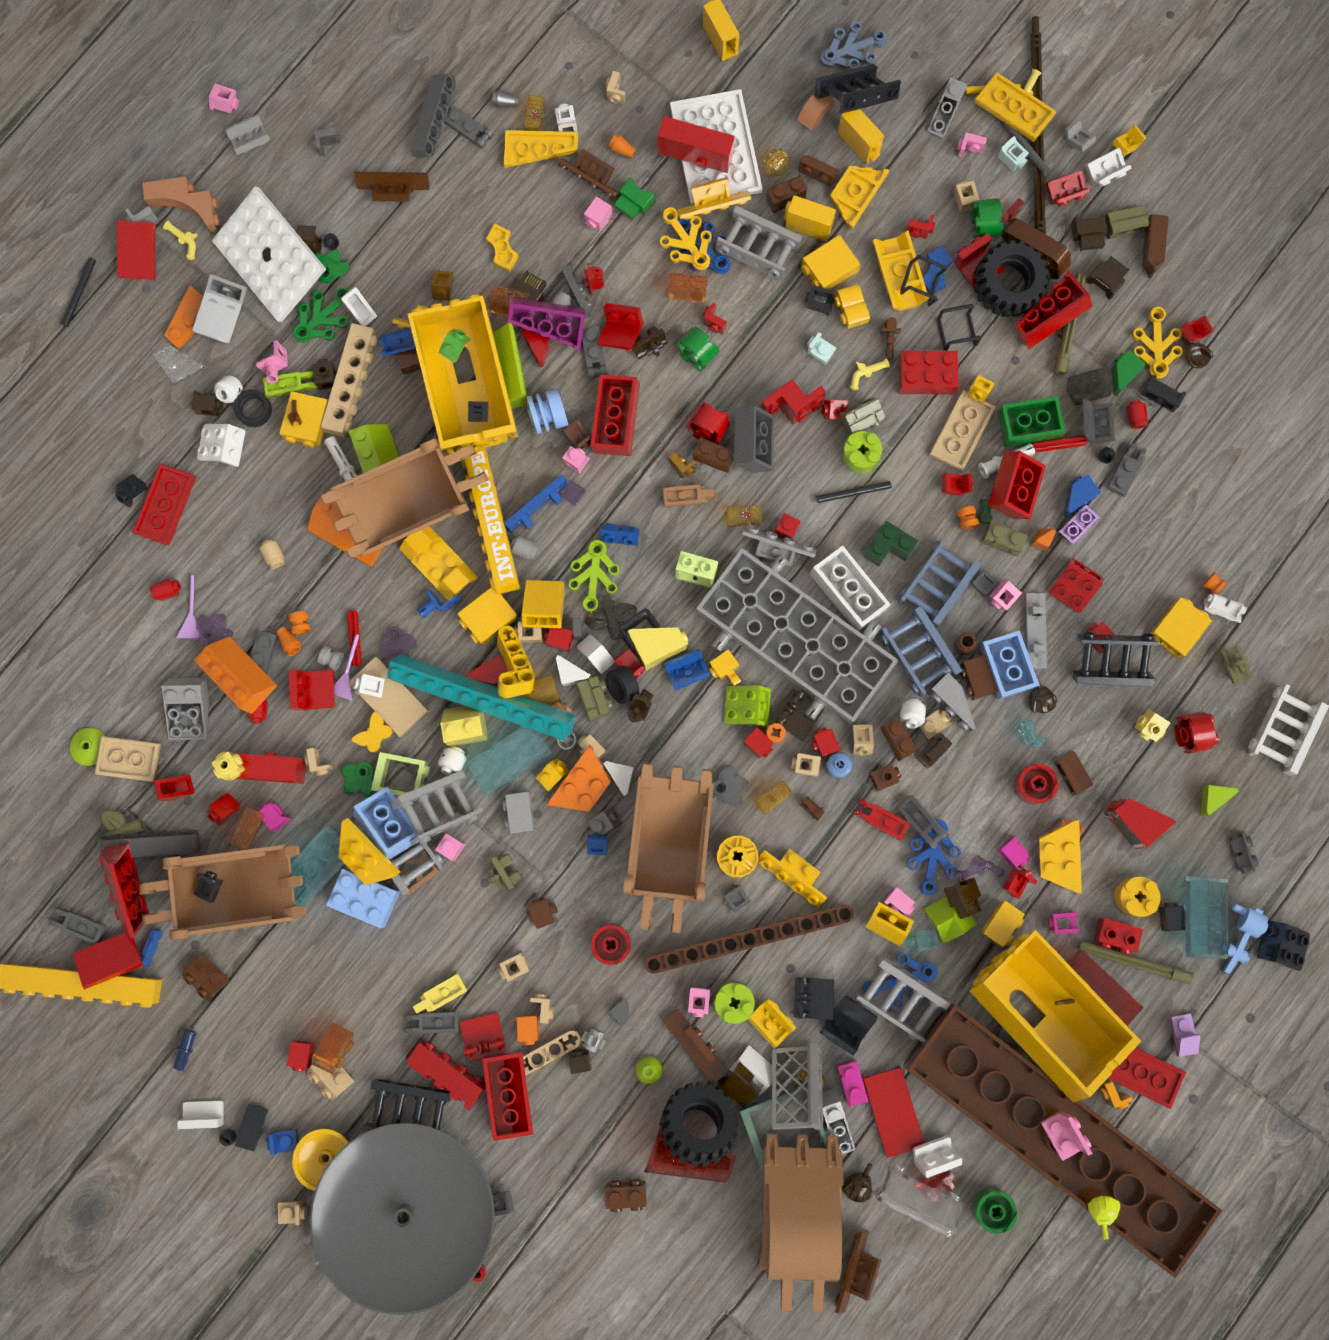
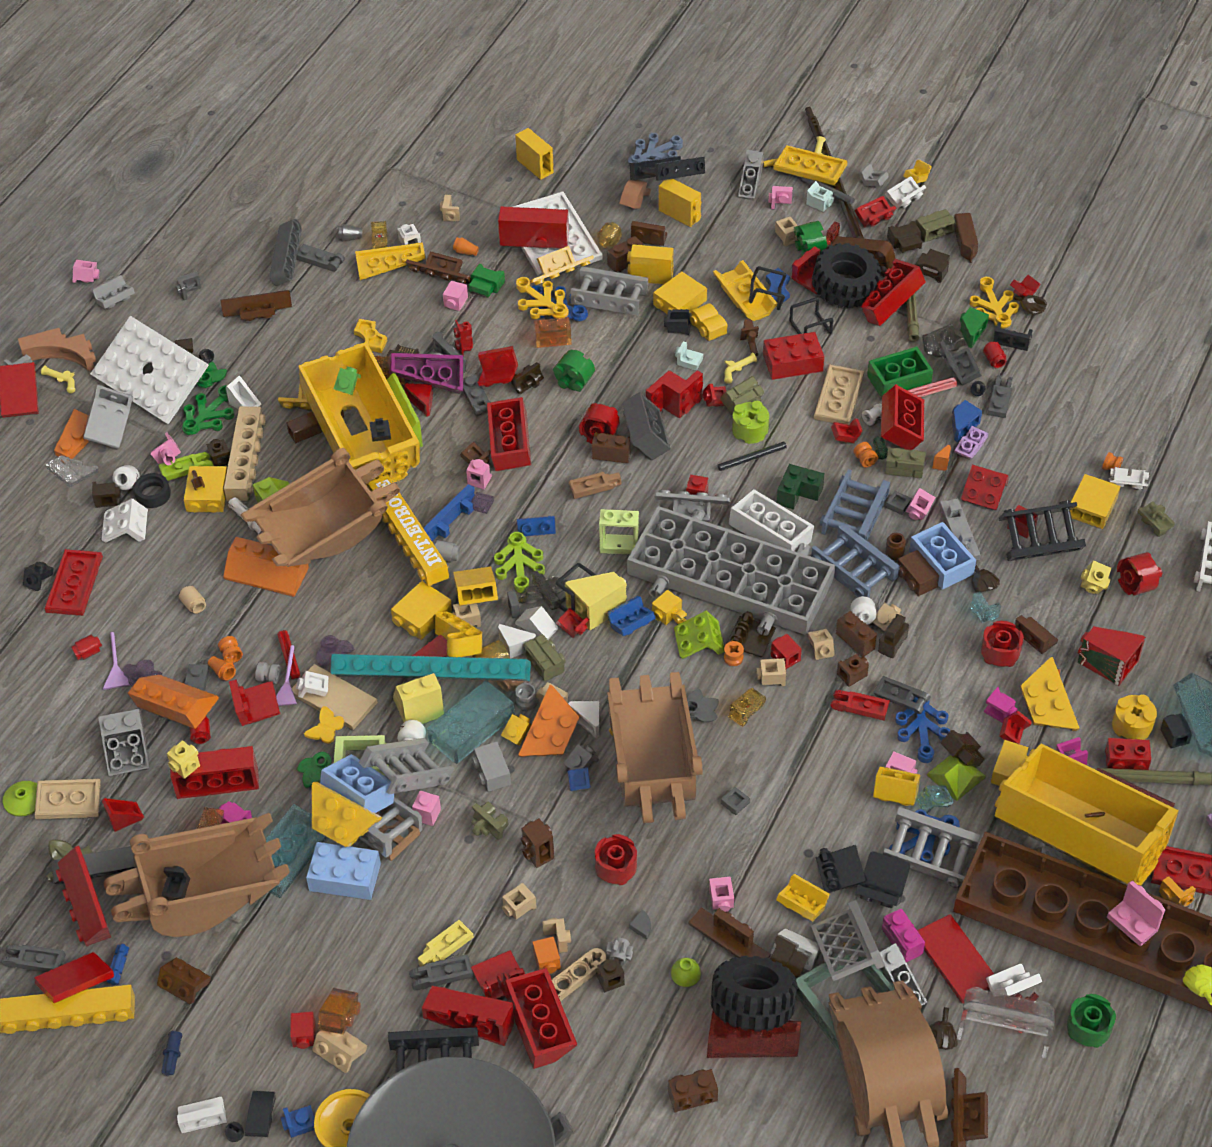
camera: 15 degrees left, 30 degrees down
(222, 809) = (176, 821): red bracket -> none
(313, 761) = (274, 767): tan bracket -> none
(397, 342) = (288, 413): blue hinge -> none
(435, 603) = (366, 609): blue bracket -> none
(437, 562) = (359, 578): yellow piece -> none
(547, 411) = (443, 439): light blue wheel -> none
(559, 639) = (496, 614): red brick -> none
(622, 684) = (580, 633): black tyre -> none
(640, 706) = (593, 650): dark brown hips -> none
(678, 464) = (581, 463): pearl gold bracket -> none
(713, 322) = (589, 351): red bracket -> none
(736, 868) = (725, 757): yellow wheel -> none
(744, 515) = (646, 490): clear yellow leg -> none
(745, 1006) = (758, 887): lime brick -> none
(759, 743) = (719, 663): red brick -> none
(759, 939) = (751, 837): reddish brown beam -> none
(795, 873) = (787, 767): yellow bracket -> none
(812, 808) = (791, 709): reddish brown pin -> none
(834, 770) = (804, 665): medium blue head -> none
(856, 191) = (689, 243): yellow wing -> none
(920, 229) = (754, 258): red bracket -> none
(952, 697) = (896, 591): light grey slope -> none
(980, 389) = (845, 359): yellow bracket -> none
(980, 866) = (973, 725): clear purple piece -> none
(1215, 797) = (1178, 623): lime slope -> none

